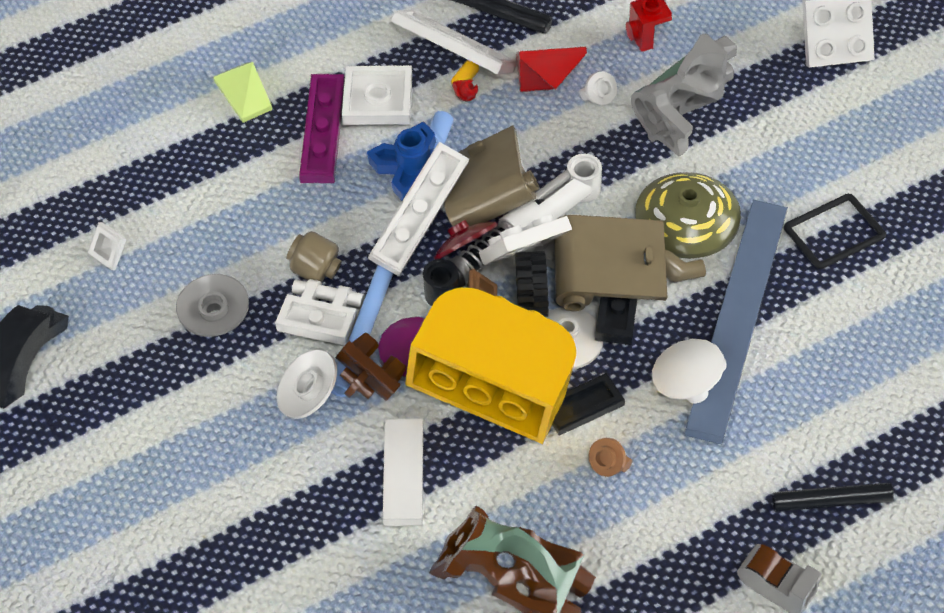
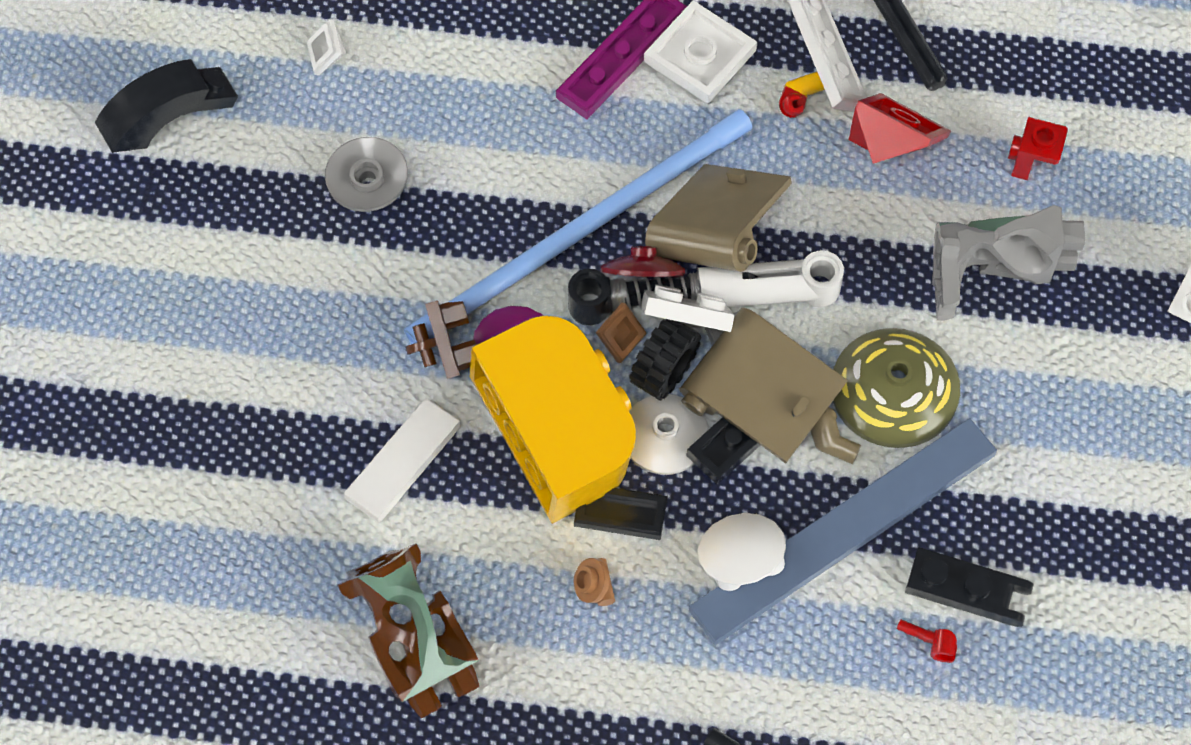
camera: 35 degrees right, 10 degrees up
(306, 384) = (383, 313): white dish -> none
(314, 257) = (495, 188): dark tan head -> none
(319, 319) = (450, 255): white plate -> none
(404, 157) = (665, 148): blue plant -> none
(418, 209) = (624, 205): white tile -> none
(599, 88) = (926, 191): white plate -> none
(809, 254) = (1022, 540): black piece -> none
(843, 300) = (966, 586): none -> black hinge
(863, 340) = (942, 640): none -> red hand

